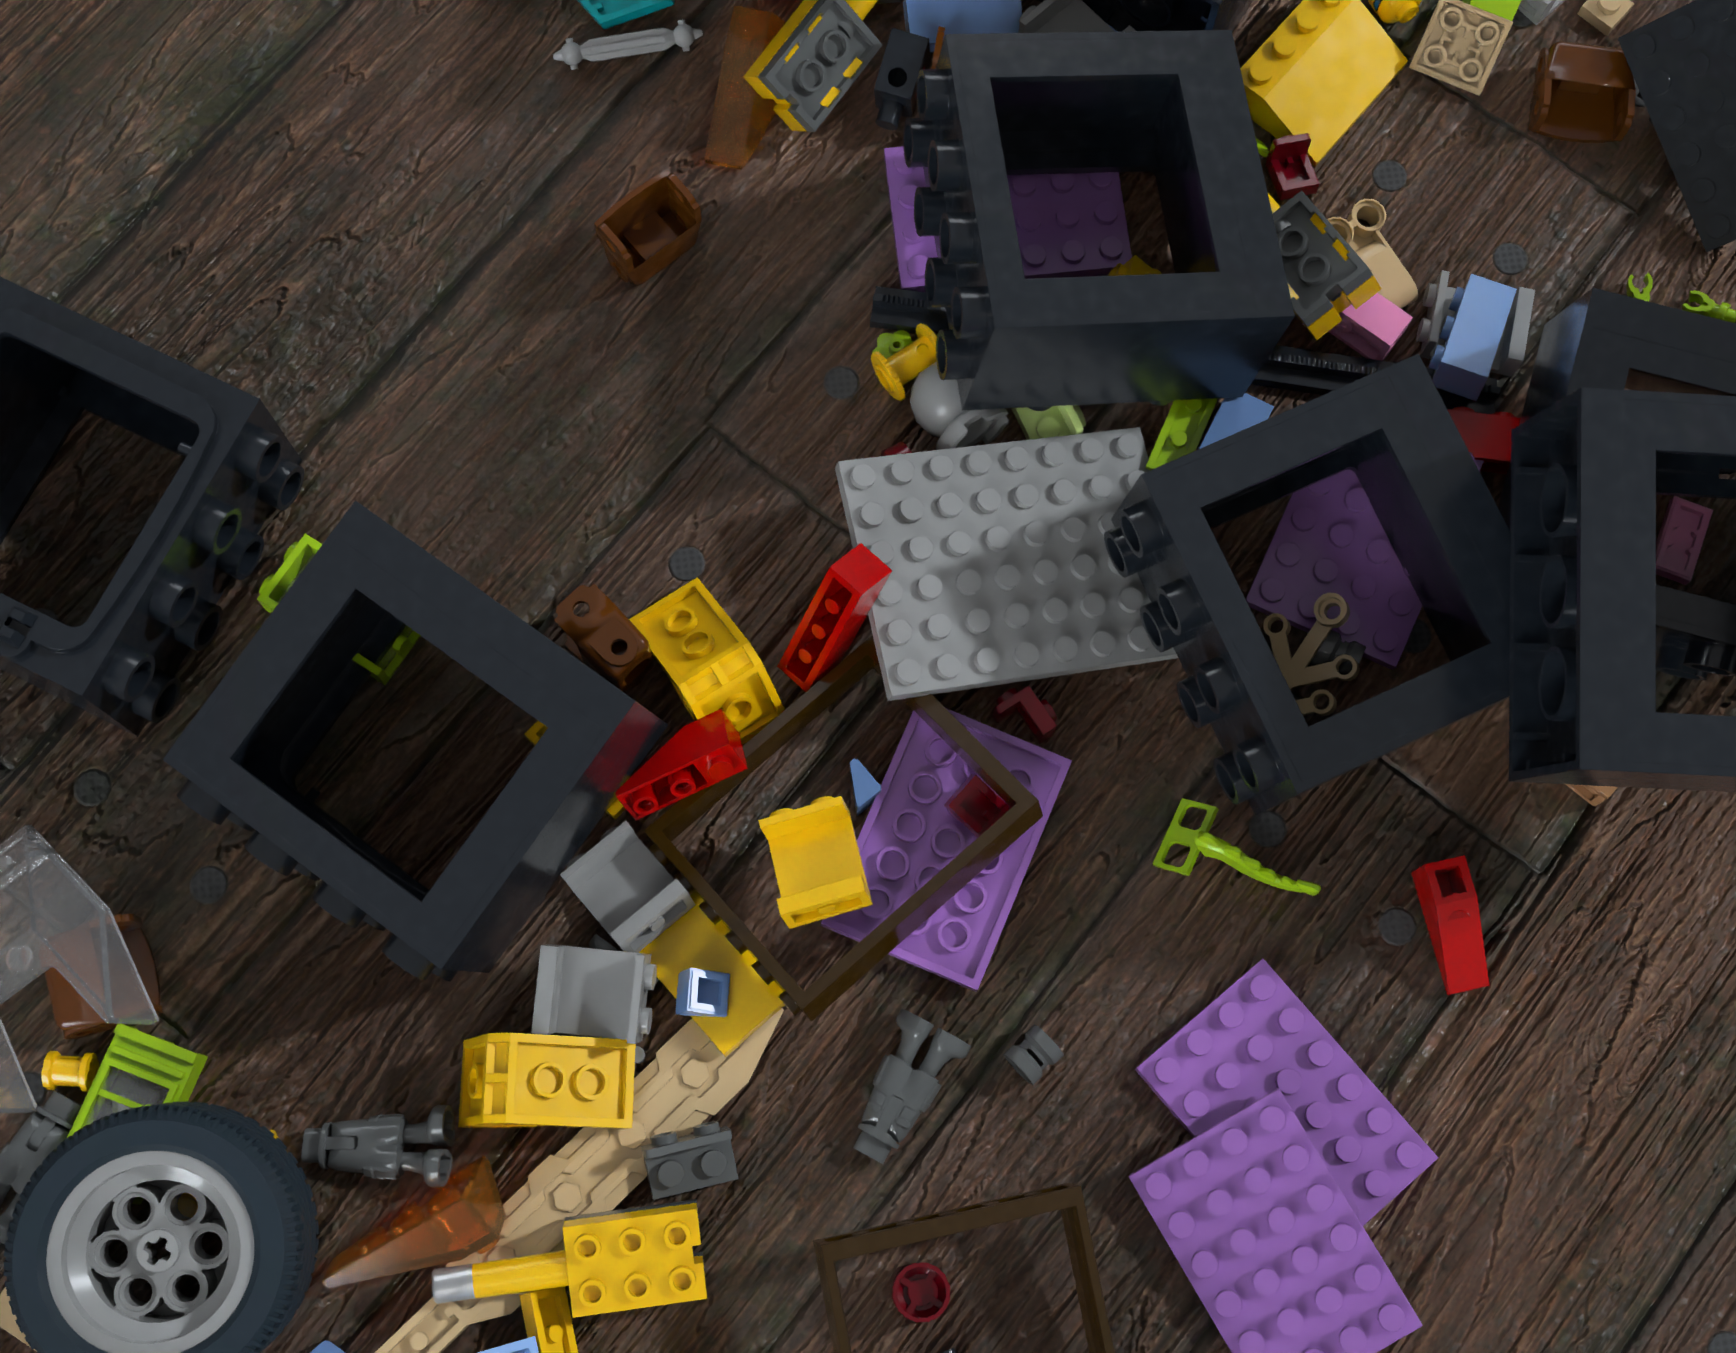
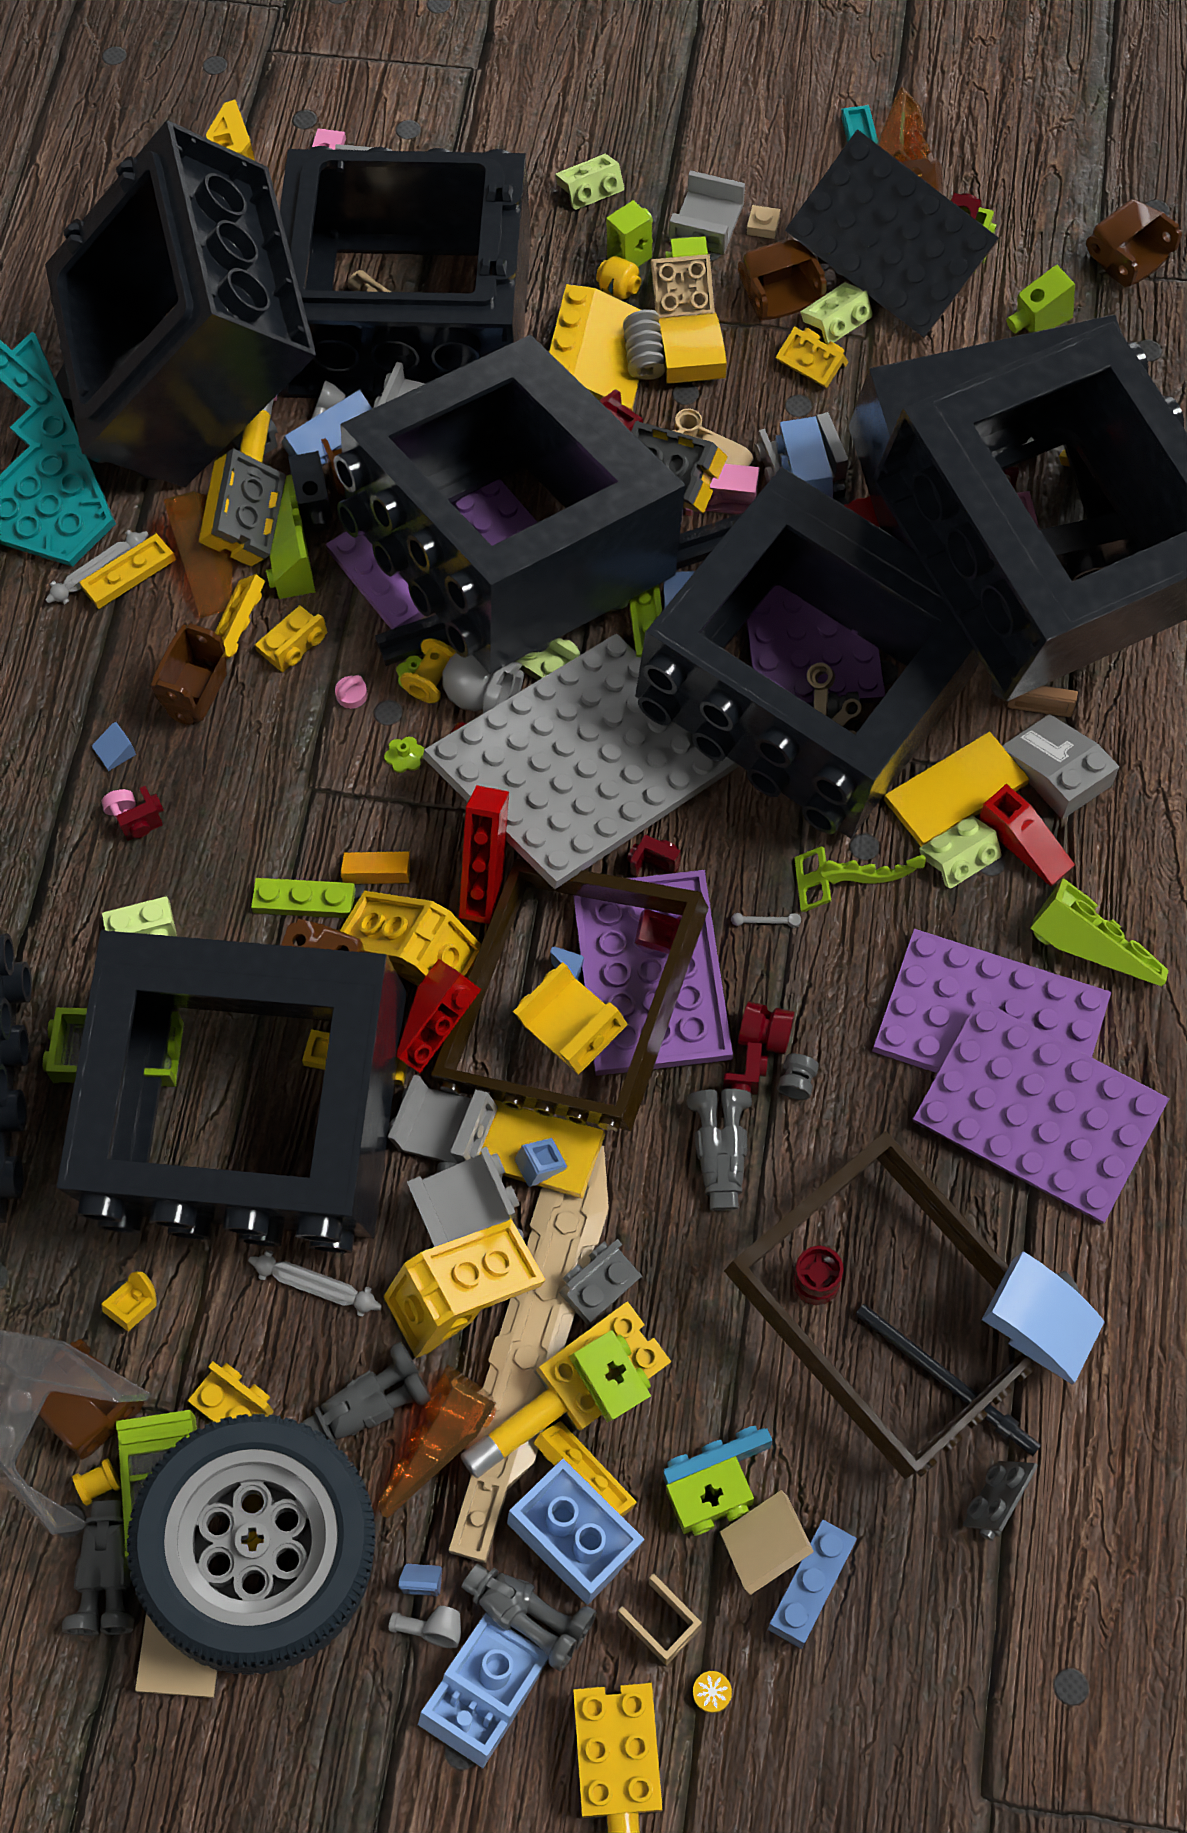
camera: 25 degrees left, 10 degrees down
(208, 899) = (131, 1301): none -> yellow plate
(247, 1065) = (225, 1396): none -> yellow bracket
(403, 989) = (315, 1283): none -> light grey wheel
(445, 484) = (145, 918): none -> yellowish green bracket
(498, 333) = (118, 802): none -> bright pink tile
(514, 366) = (142, 818): none -> dark red bracket
(530, 265) = (113, 747): none -> medium blue slope
(622, 1313) = (609, 1396): none -> lime brick
(631, 548) = (303, 898): none -> lime plate
(656, 67) = (127, 571): none -> yellow plate
(725, 556) = (375, 867): none -> light orange slope
(741, 182) = (236, 615): none -> yellow plate
(786, 240) = (292, 638): none -> yellow bracket
(814, 338) = (351, 691): none -> bright pink tile
(830, 449) = (404, 754): none -> lime plant
(838, 139) = (289, 552): none -> lime wedge
(993, 1018) = (755, 1066): none -> dark red bracket
(1031, 981) = (766, 1027): none -> dark red wheel
(1137, 870) = (793, 920): none -> light grey hinge
(1370, 94) = (644, 345): none -> light grey piece
(1372, 897) = (962, 850): none -> yellowish green bracket
(1410, 820) = (954, 788): none -> yellow tile
(1428, 125) = (693, 348): none -> yellow slope
(1447, 1067) = (1074, 927): none -> lime wedge
(1546, 857) = (1062, 764): none -> light grey slope
(1559, 209) = (812, 357): none -> yellow bracket
(1625, 168) = (839, 312): none -> yellowish green bracket

